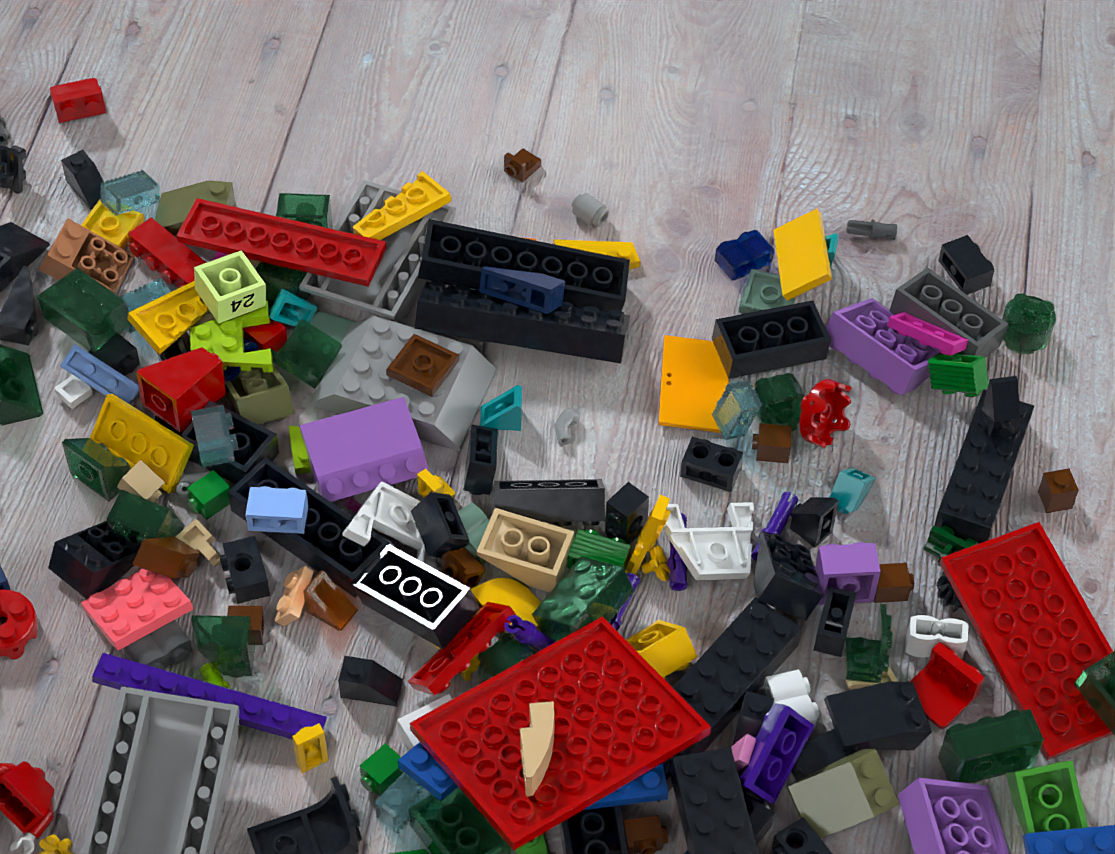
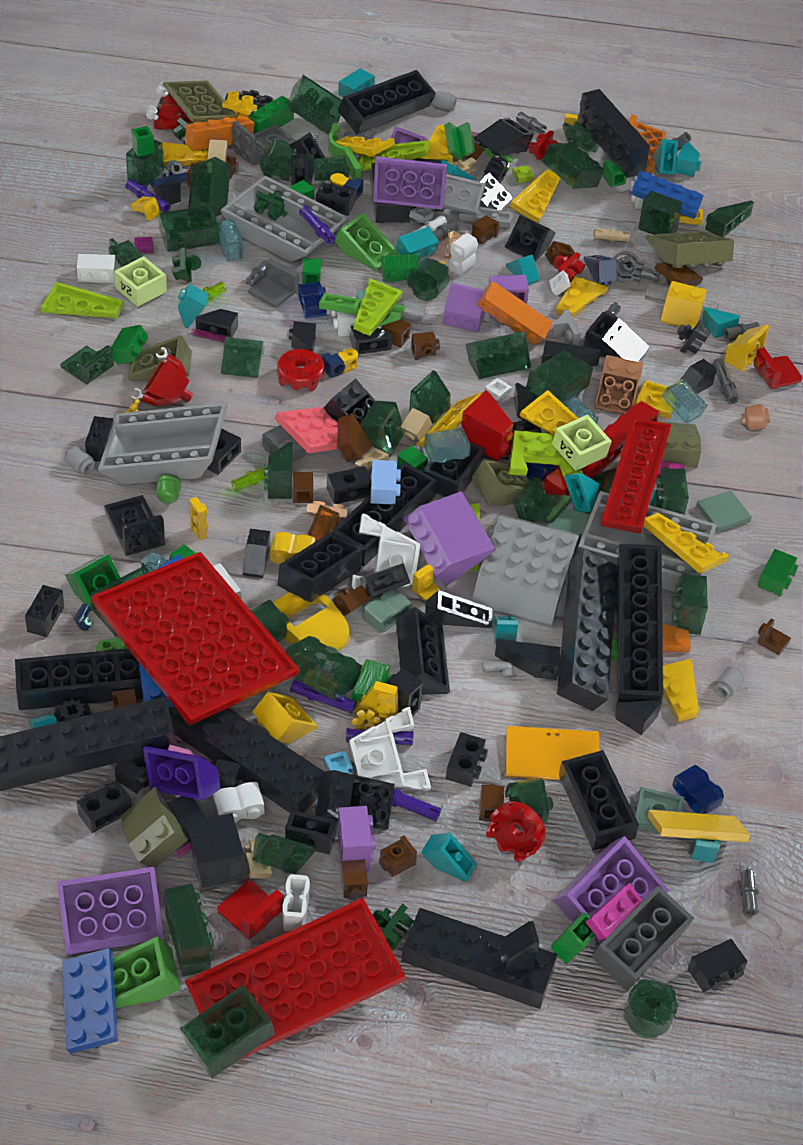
camera: 85 degrees right, 5 degrees down
(36, 117) = (744, 349): none -> yellow slope
(95, 151) = (727, 385): none -> dark grey pin
(99, 375) = (510, 390): medium blue tile -> none
(162, 129) = (755, 417): none -> nougat head
(243, 793) = (168, 488): none -> bright green piece
(253, 710) = (237, 469): dark purple plate -> none
(318, 178) = (724, 511): none -> sand green tile
(364, 635) = (287, 545): none -> yellow brick
(422, 365) = (529, 561): reddish brown tile -> none
(423, 144) = (778, 572): none -> green brick
(472, 639) = (274, 593): red plate -> none
(483, 213) = (690, 603): none -> clear green brick
(523, 288) = (608, 617): dark blue slope -> none
(526, 548) = (369, 632): tan slope -> none
(527, 633) = (282, 622): dark purple pin -> none
(537, 744) = (169, 609): tan slope -> none
(558, 387) = (534, 659): none -> black slope
(642, 294) = (638, 714): none -> black slope
(727, 595) = (339, 762): none -> medium azure plate
(736, 409) = (514, 766): clear light blue brick -> none
(814, 519) = (411, 823): black slope -> none
(852, 531) = (398, 856): none -> reddish brown brick
(1058, 490) = (457, 1014): reddish brown brick -> none

